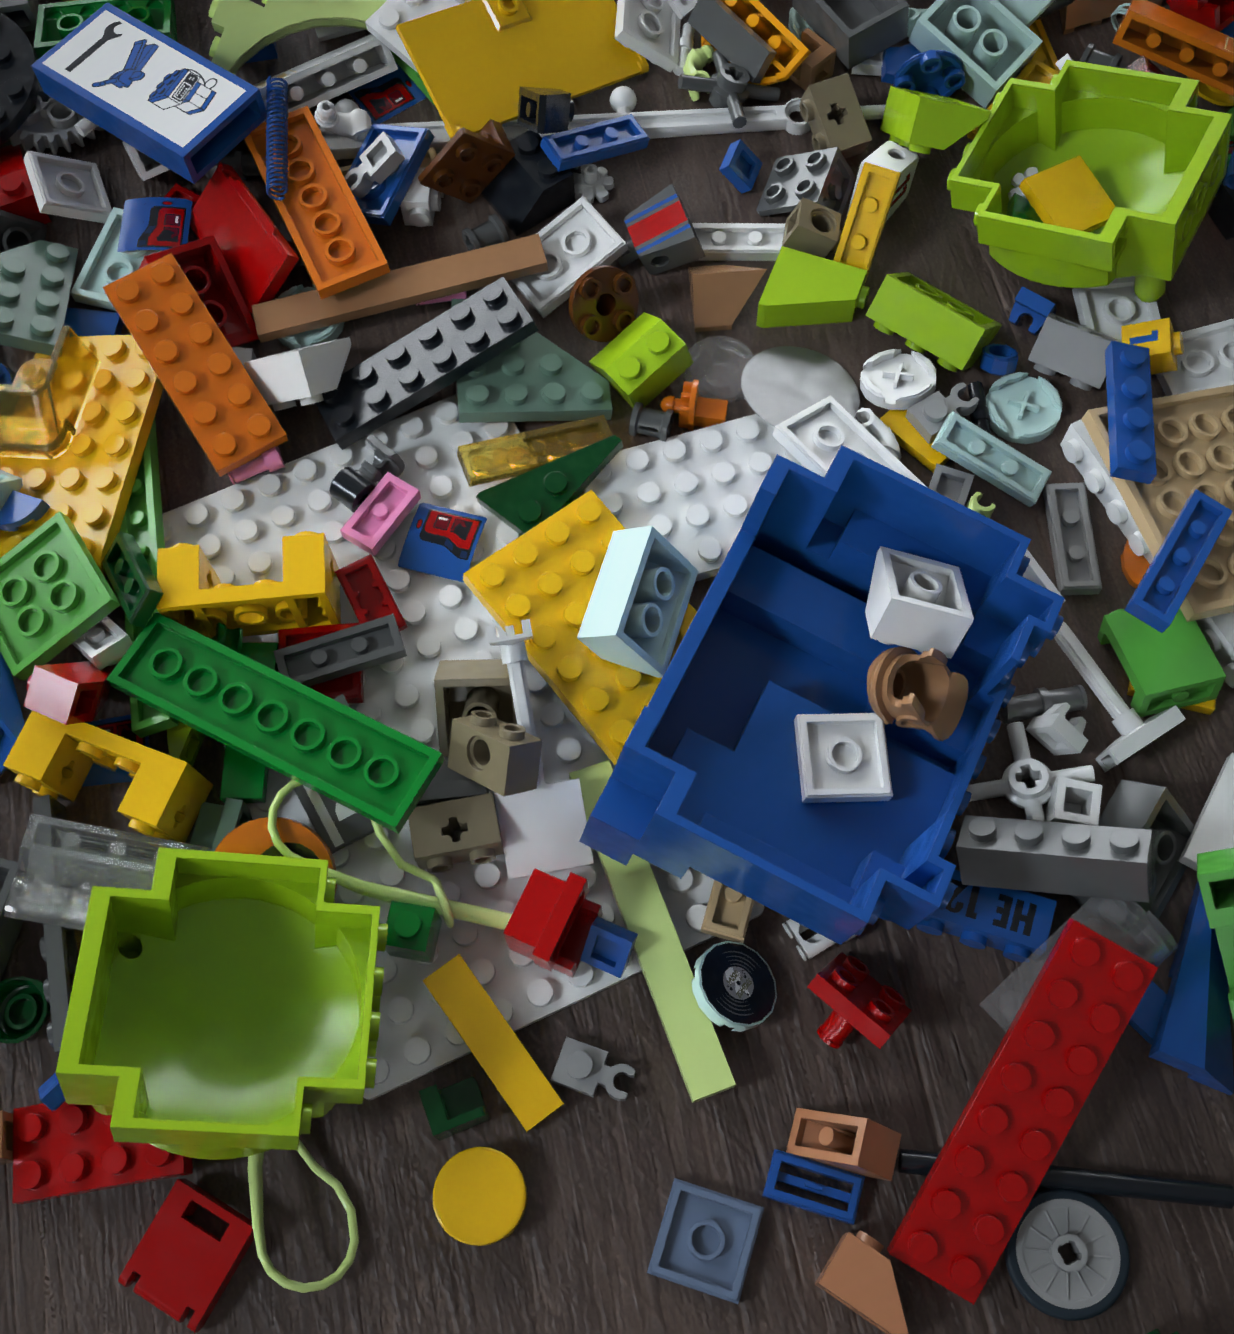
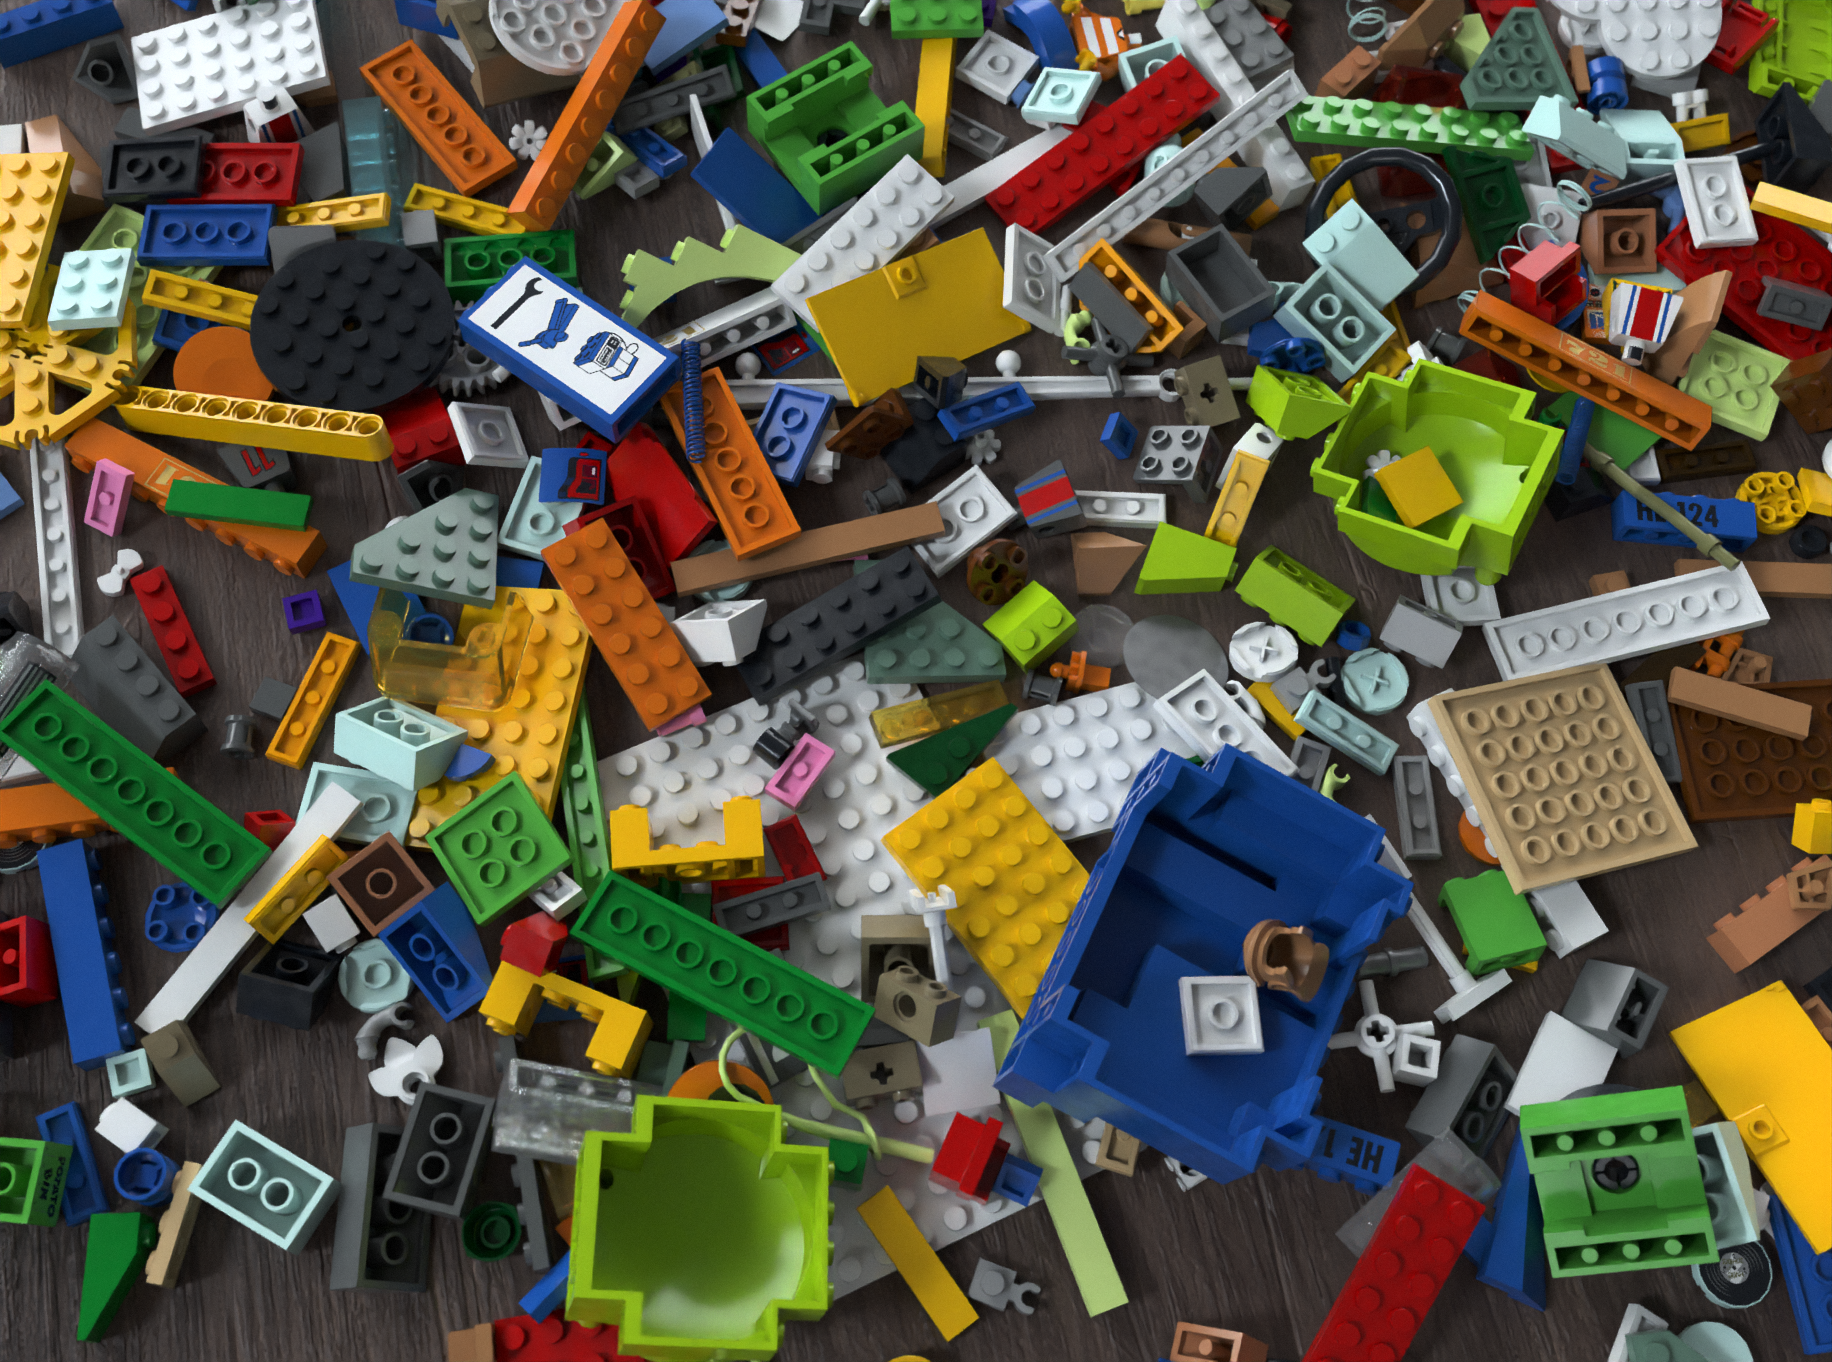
camera: 10 degrees left, 0 degrees up
(132, 579) = (584, 836): dark green tile -> none
(350, 125) = (756, 383): white piece -> none
(378, 162) = (788, 429): light grey plate -> none
(441, 541) = (855, 798): sticker -> none
(454, 1107) = (884, 1320): dark green panel -> none
(638, 601) = (1039, 867): light aqua slope -> none
(734, 986) = (1125, 1214): black tile -> none
(812, 229) = (1185, 504): dark tan brick -> none
(856, 1003) = (1231, 1231): red plate -> none
(917, 603) = (1287, 880): white slope -> none
(1034, 305) = (1387, 586): blue tile -> none
(1057, 857) = (1403, 1106): dark grey slope -> none
(1058, 733) = (1402, 990): white tile -> none
(1130, 413) = (1470, 699): blue plate -> none
(1160, 339) = (1488, 632): yellow brick -> none
(1178, 561) = (1509, 843): blue plate -> none

